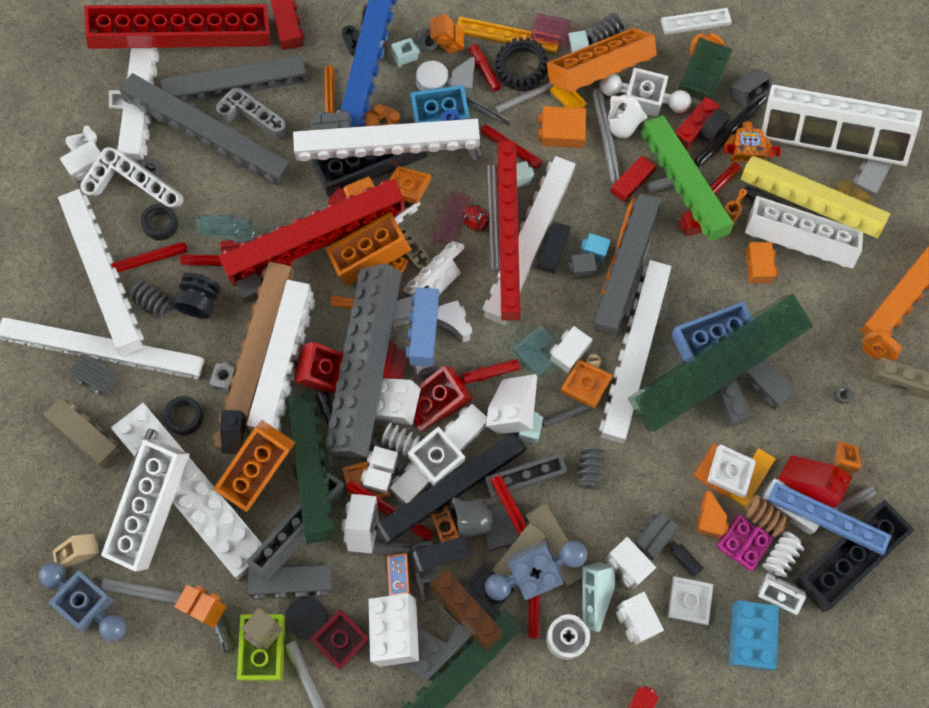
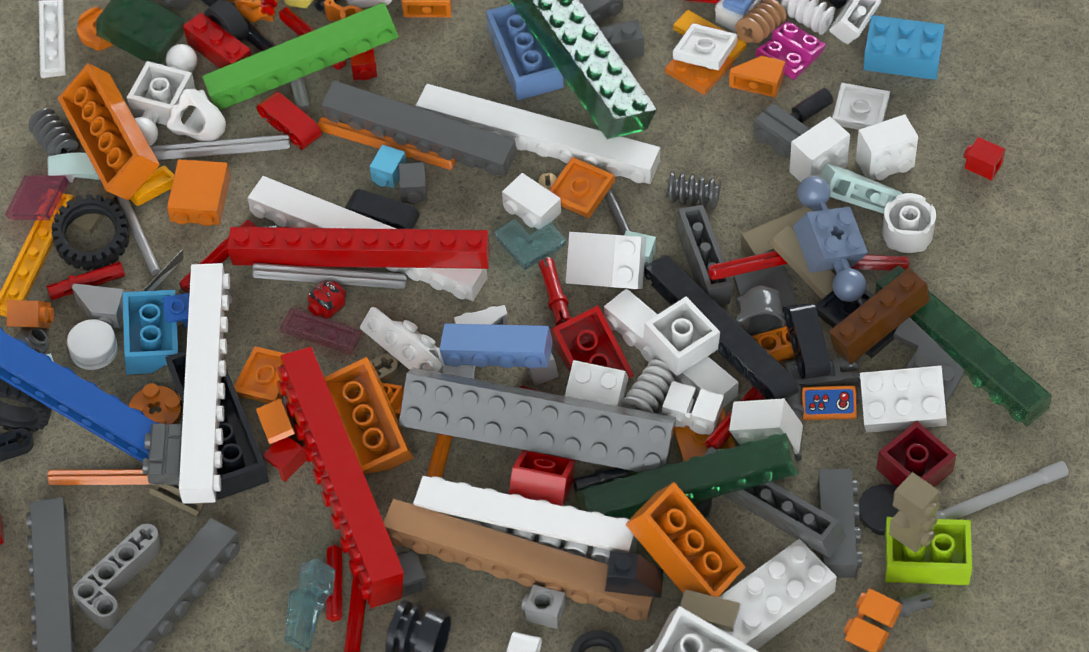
camera: 80 degrees left, 15 degrees down
(202, 484) = (714, 610): none -> dark tan tile

